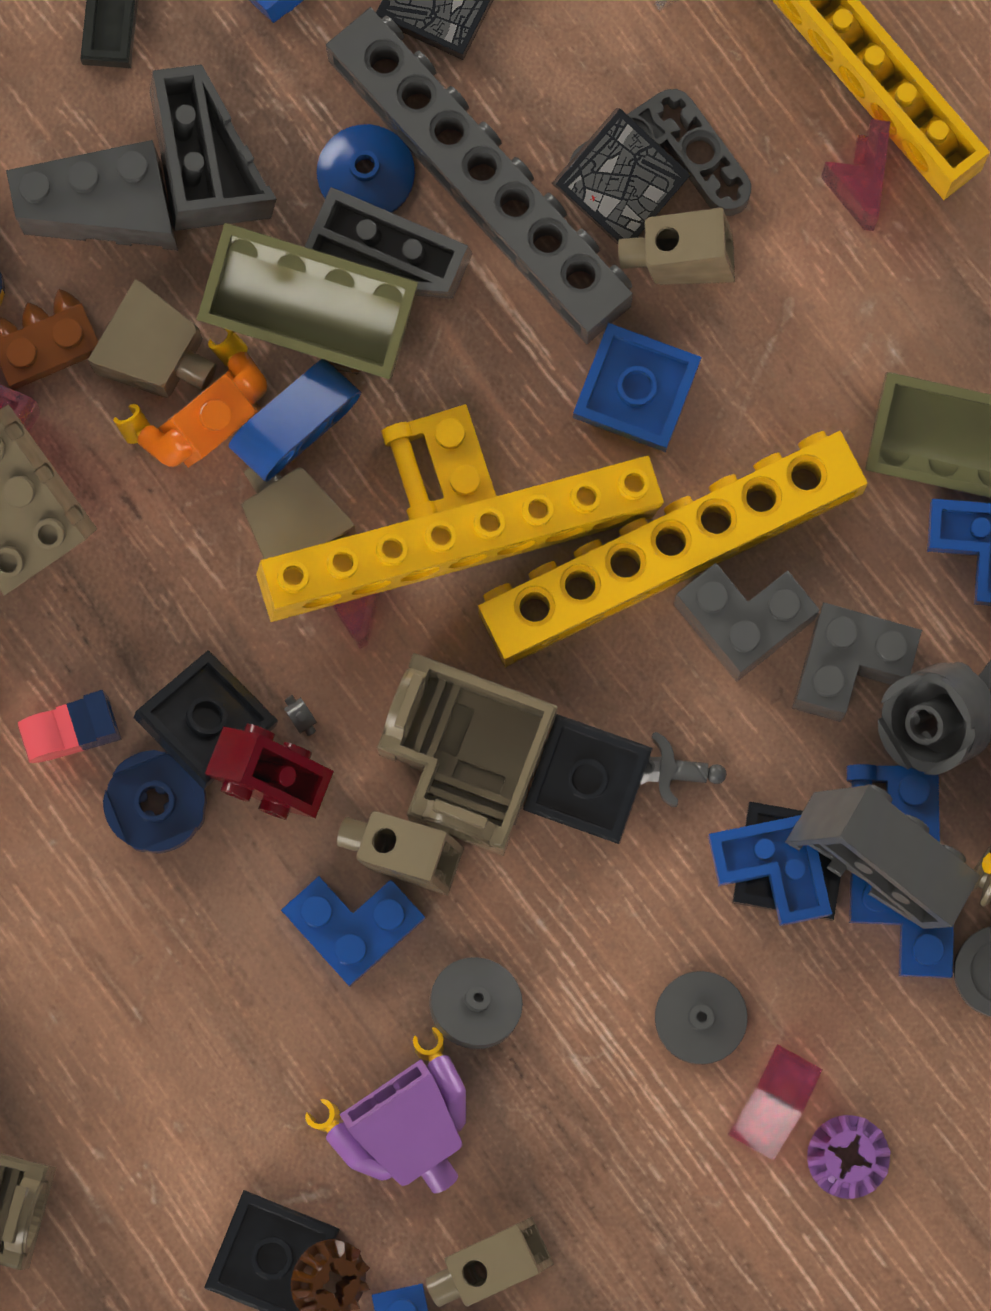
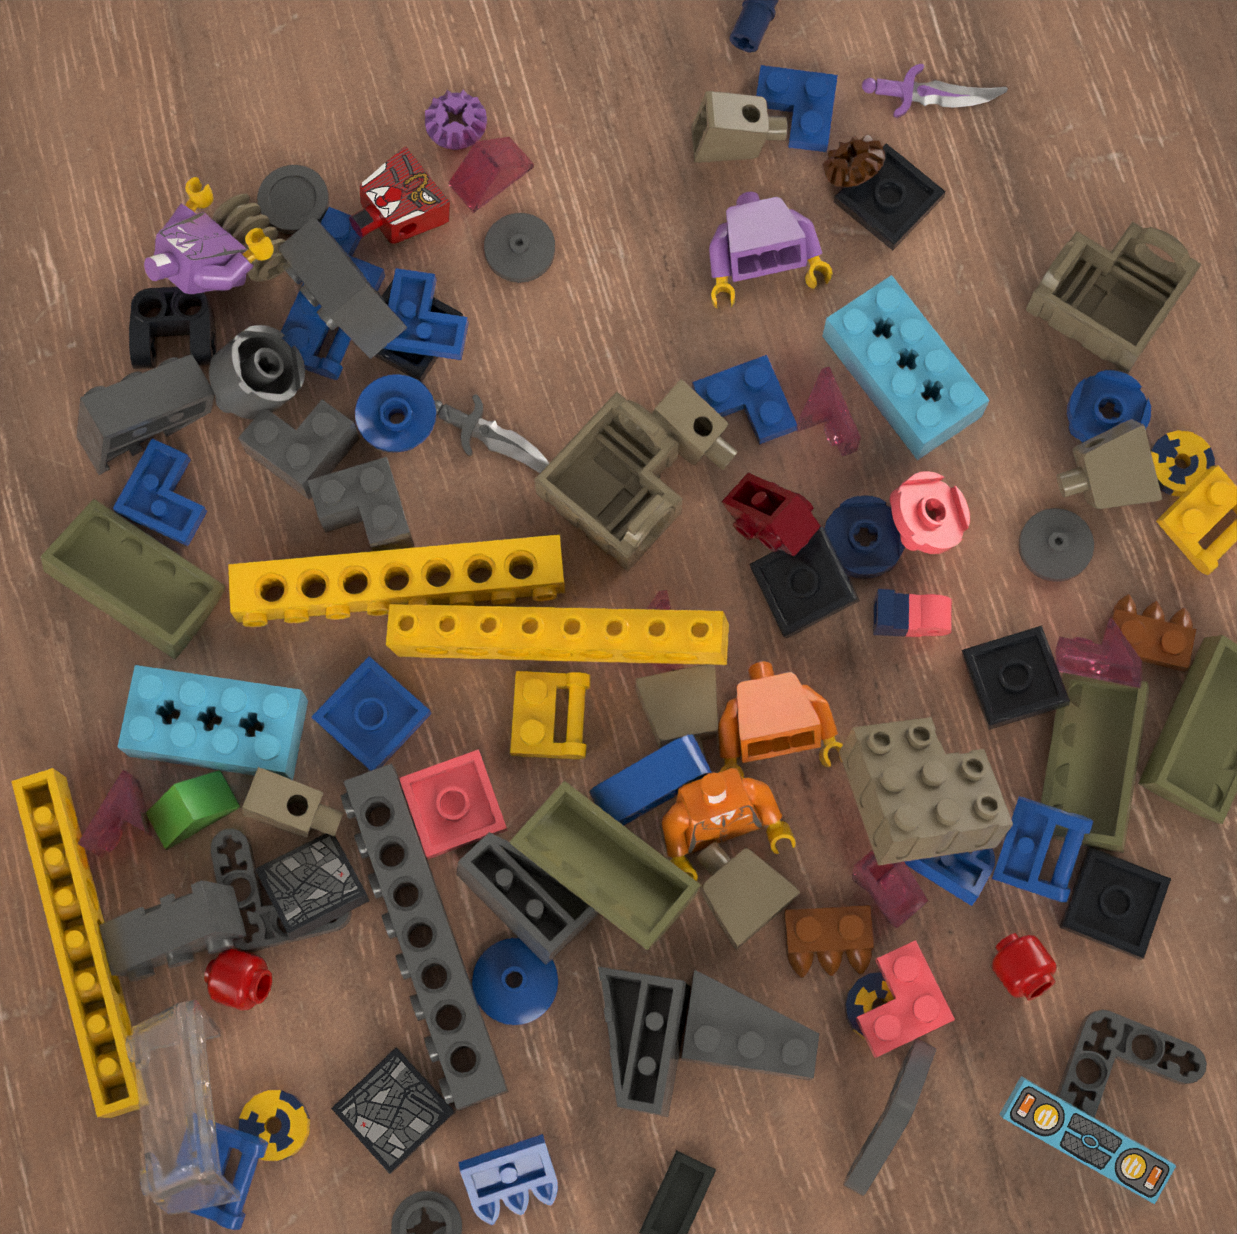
camera: 160 degrees left, 5 degrees down
(113, 852) = (914, 524): none -> coral plate
(142, 1035) = (899, 391): none -> medium azure brick
(183, 543) = (774, 719): none -> orange torso
(258, 946) = (829, 405): none -> clear pink slope
(300, 715) = (730, 562): dark grey piece -> none
(475, 1003) = (678, 309): dark grey piece -> none
(506, 324) = (452, 804): none -> coral plate
(588, 779) = (528, 433): black tile -> none
(658, 57) = (238, 979): none -> red head
(745, 73) = (173, 931): none -> dark grey wedge
(762, 717) = (391, 396): none -> blue dish
(788, 218) = (191, 807): none -> bright green slope
(812, 278) = (199, 699): none -> medium azure brick
(868, 1012) = (400, 200): none -> torso

